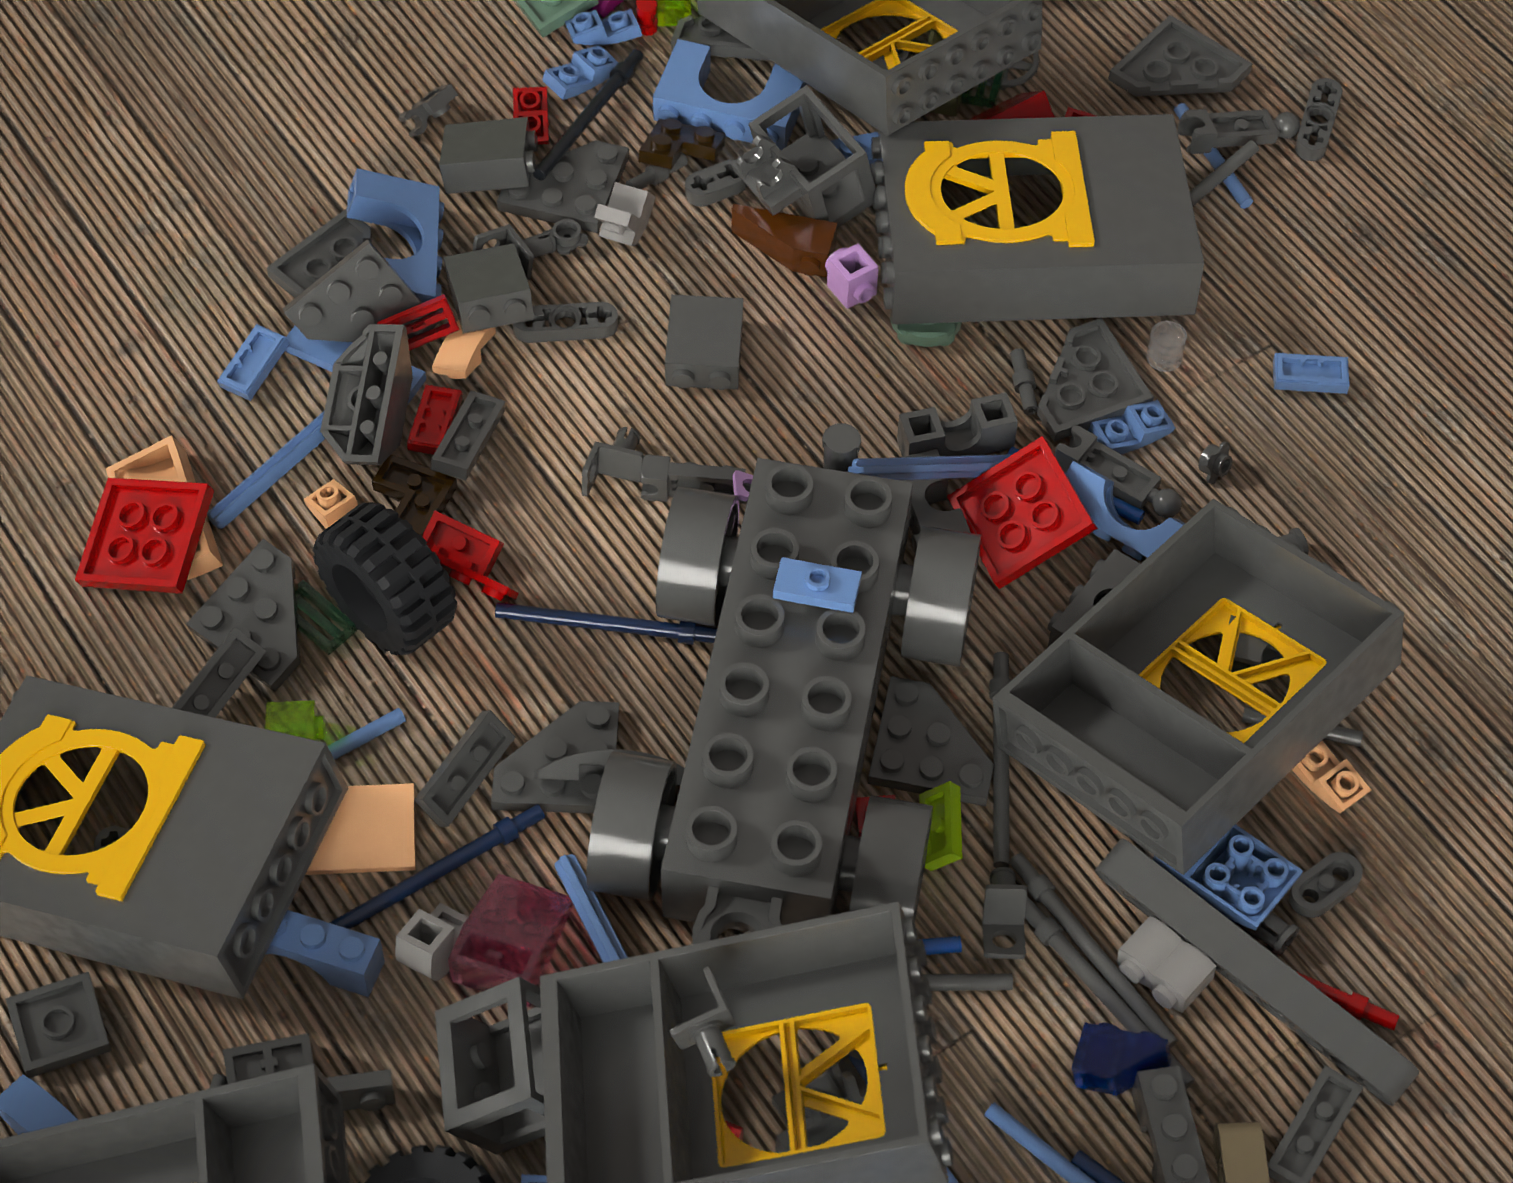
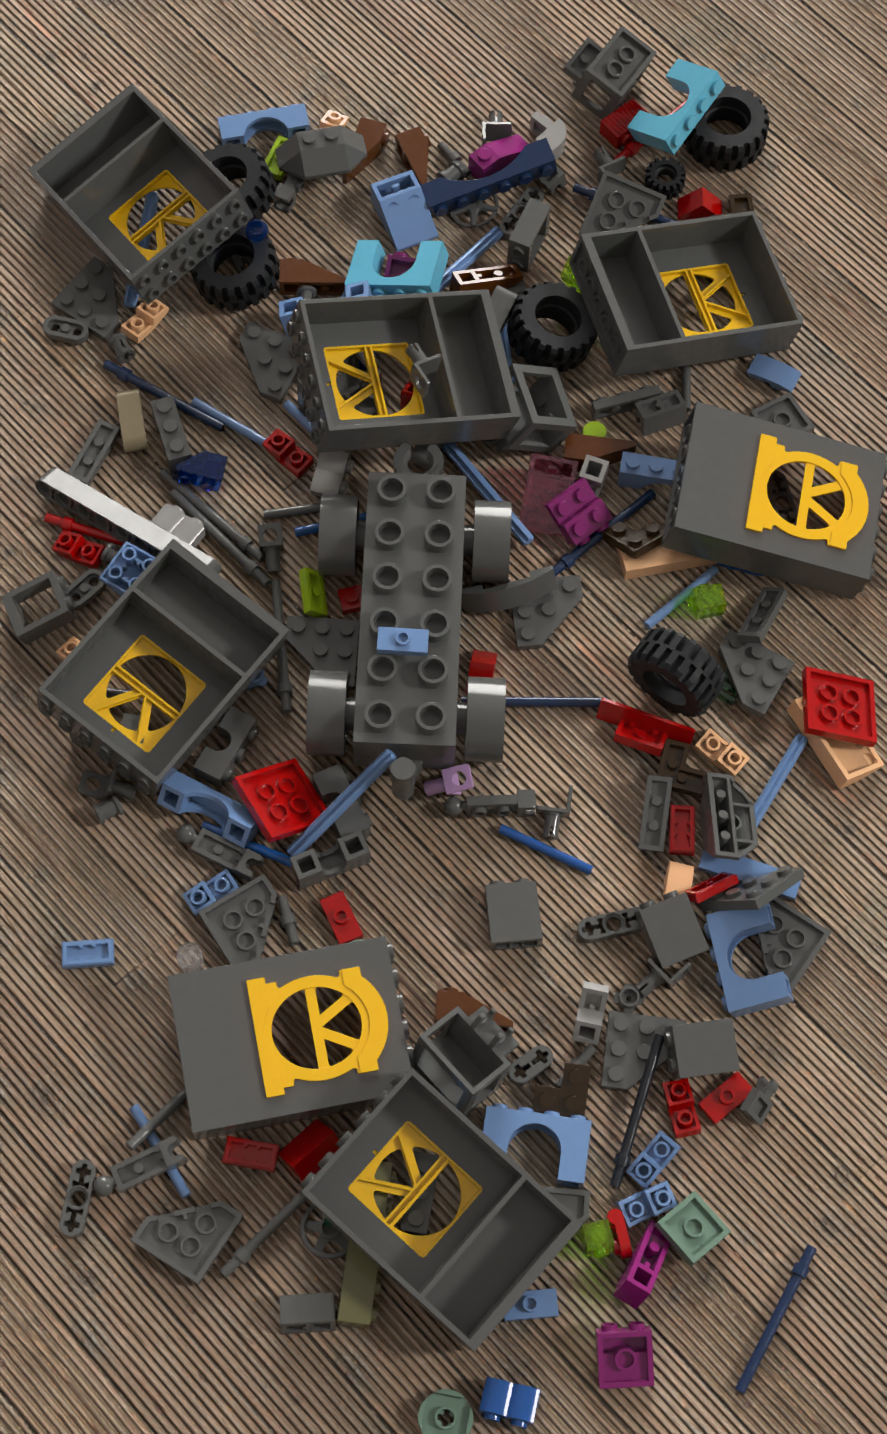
camera: 170 degrees right, 10 degrees up
(253, 362) = (816, 856): medium blue plate -> none
(383, 826) = (634, 542): none -> dark brown plate
(400, 1053) = (594, 429): none -> lime tile
(401, 1005) = (601, 447): none -> reddish brown slope
(464, 768) = (599, 591): dark grey plate -> none
(467, 882) = (579, 512): none -> magenta plate
(479, 110) = (725, 1098): none -> red plate
(644, 428) = (545, 849): none -> blue bar
(681, 678) = (482, 664): none -> red slope
(852, 275) = (418, 979): lavender brick -> none
(947, 376) = (341, 918): none -> red plate
(966, 1090) = (287, 453): none -> red slope
(1109, 44) = (243, 1254): none -> dark grey bar
(1215, 461) = (153, 869): dark grey plate -> none
(1337, 963) = (78, 550): none -> red slope
(1432, 836) = (48, 623): none -> dark grey window

